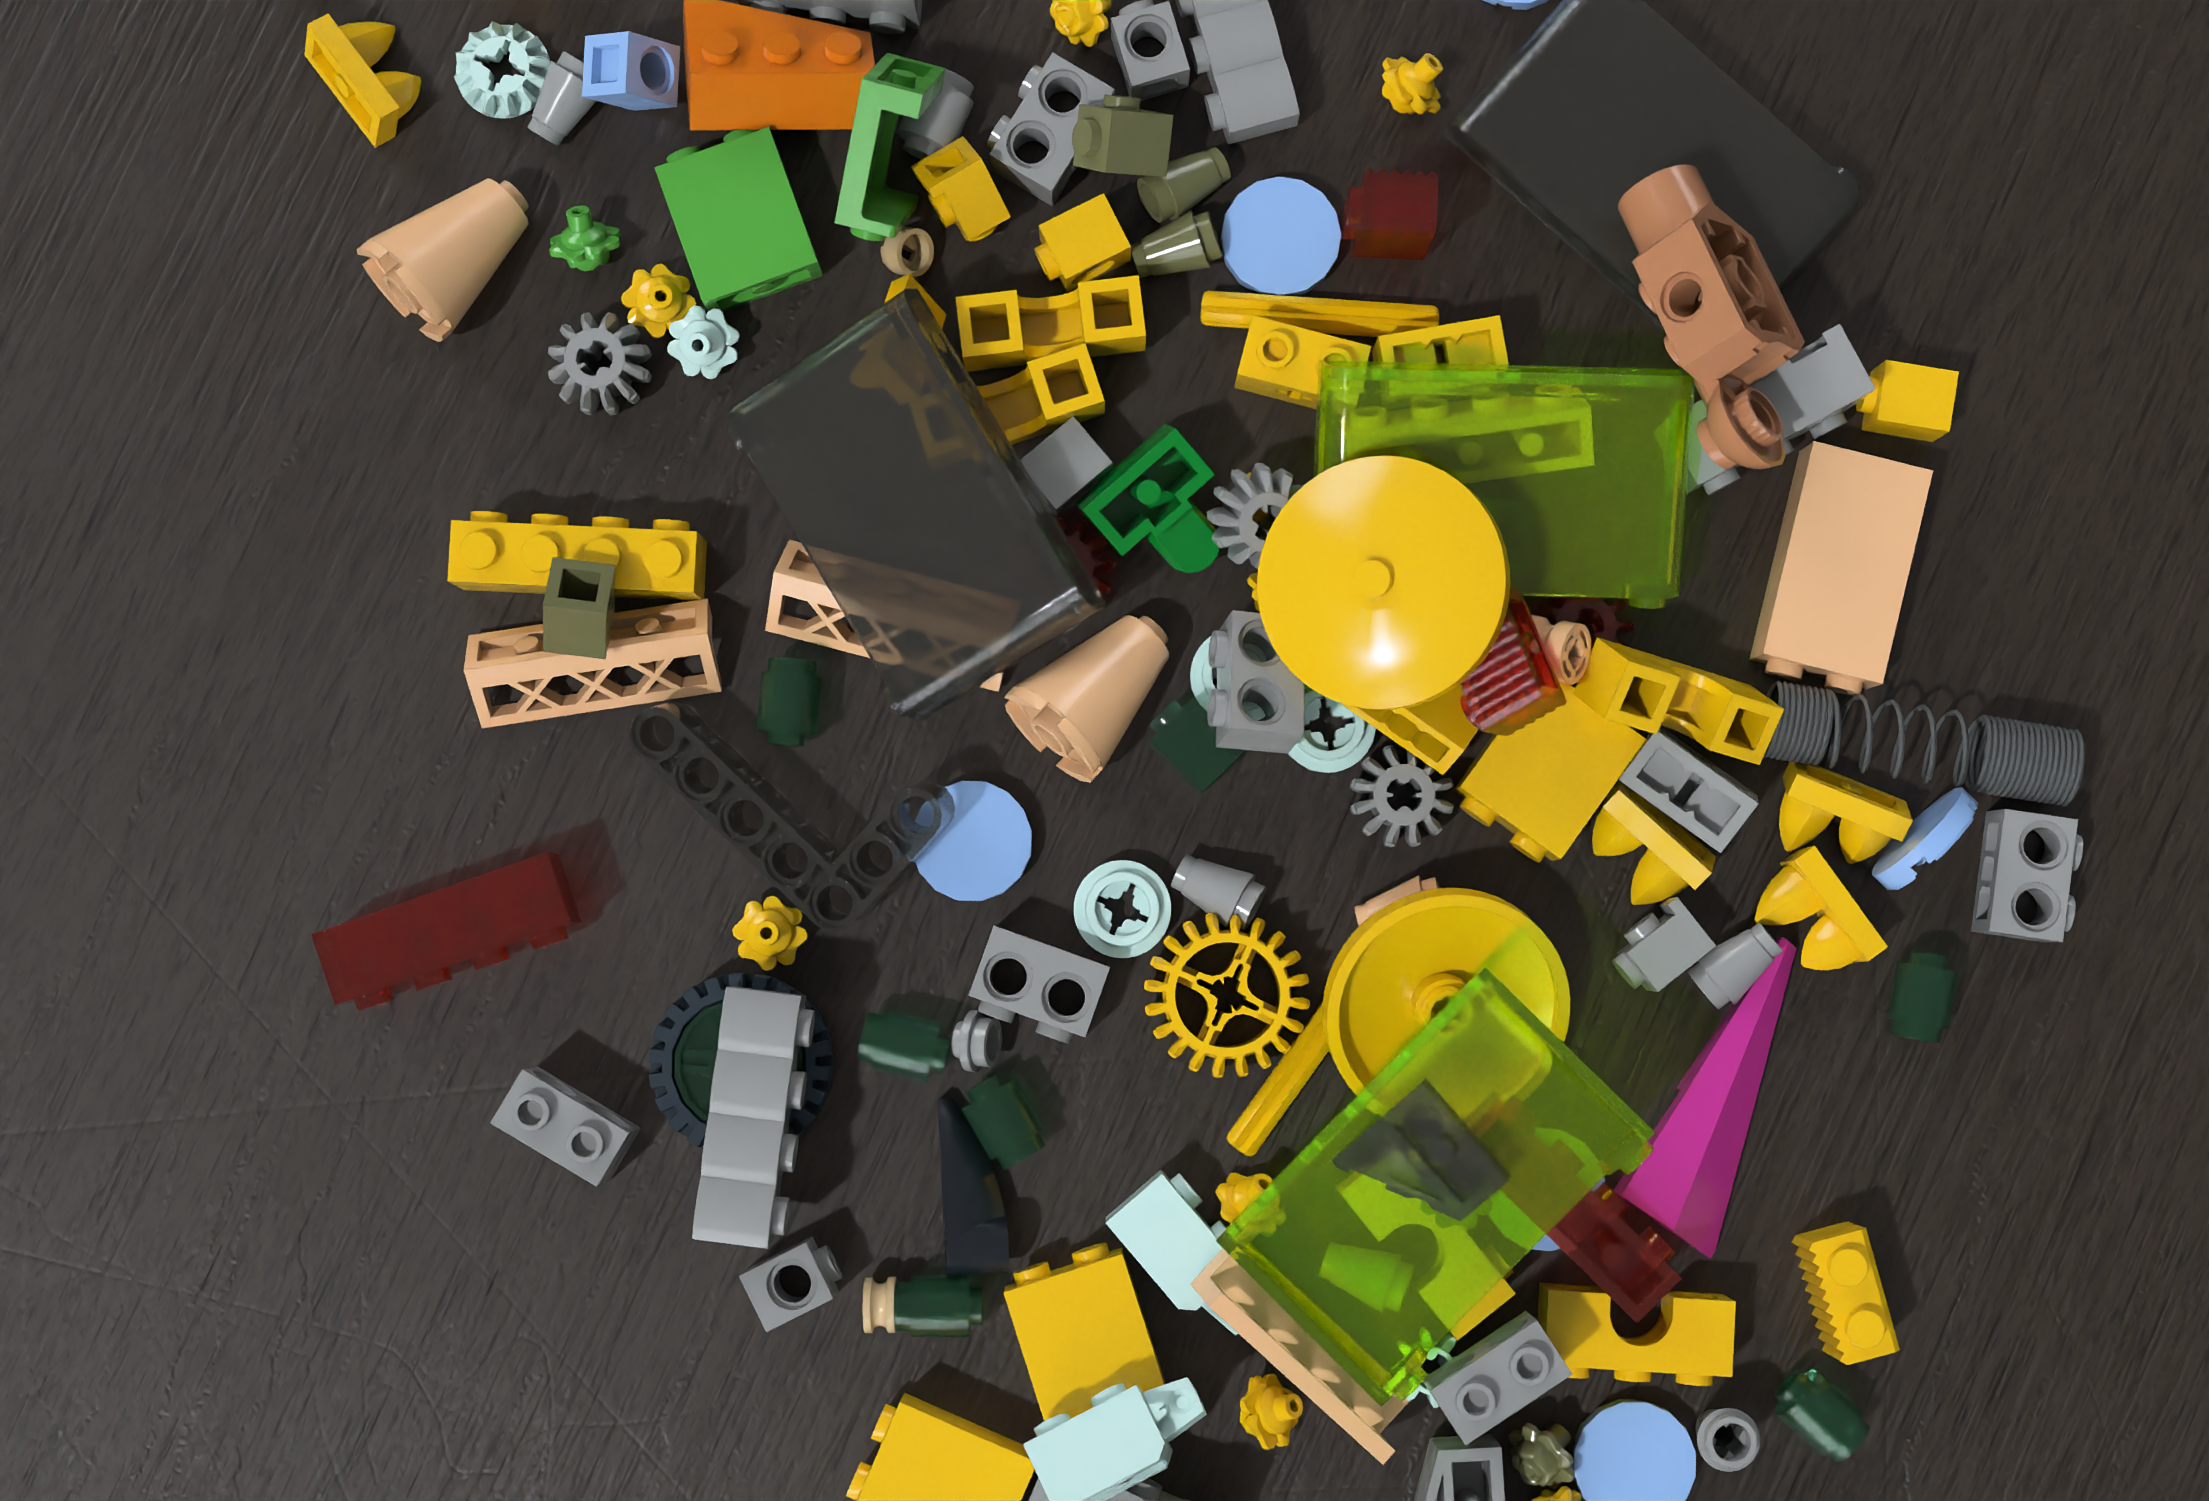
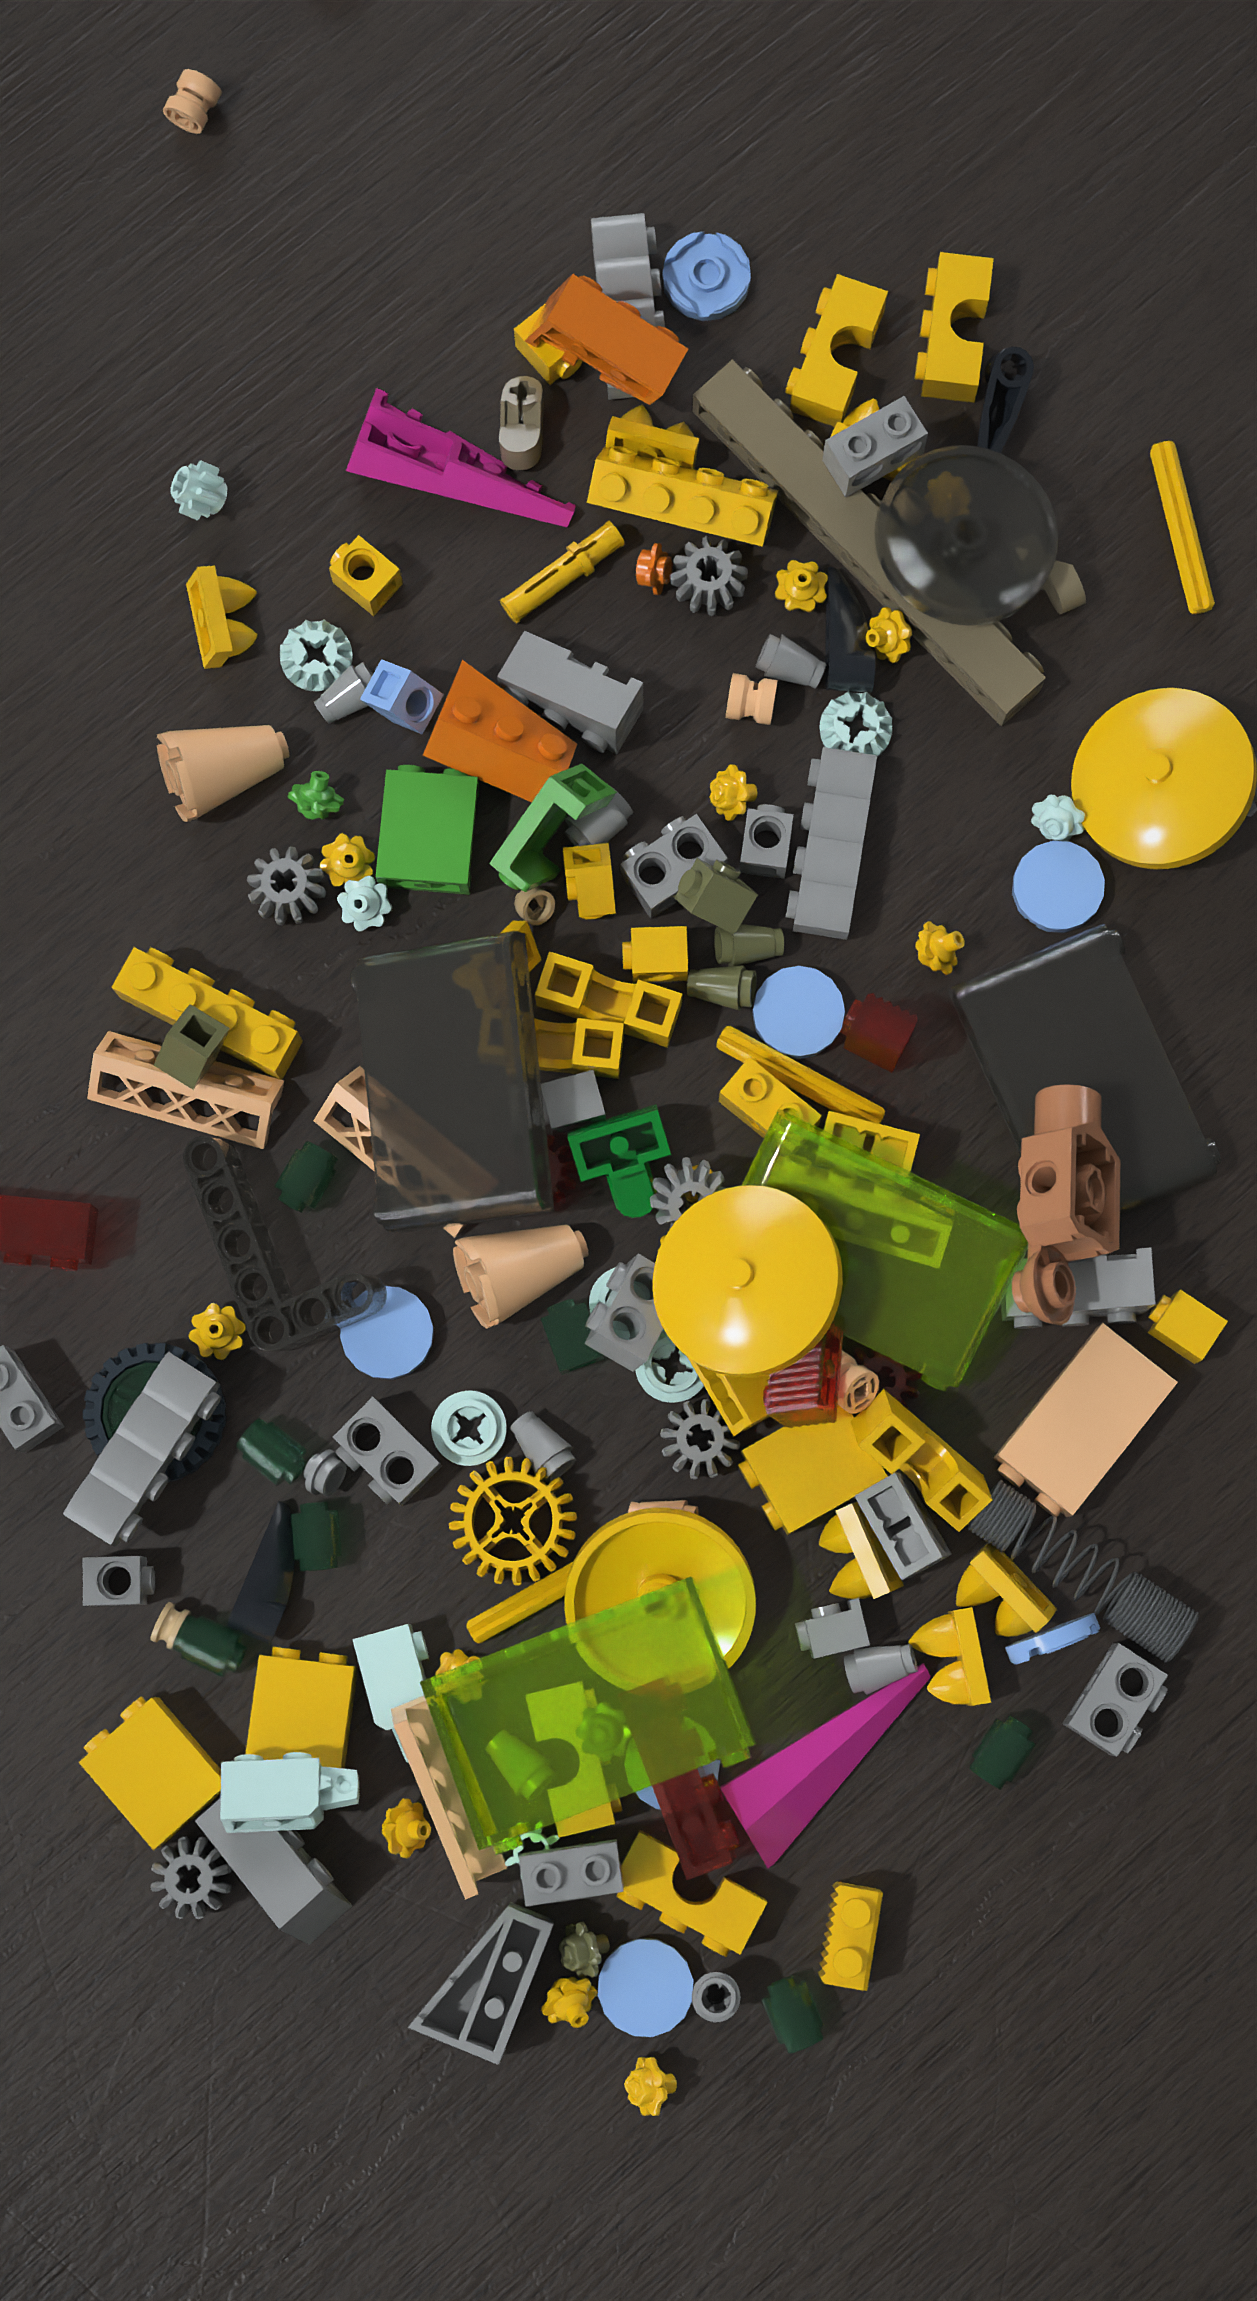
camera: 25 degrees right, 5 degrees down
(1426, 1154) = (593, 1690): clear smoke wing -> none

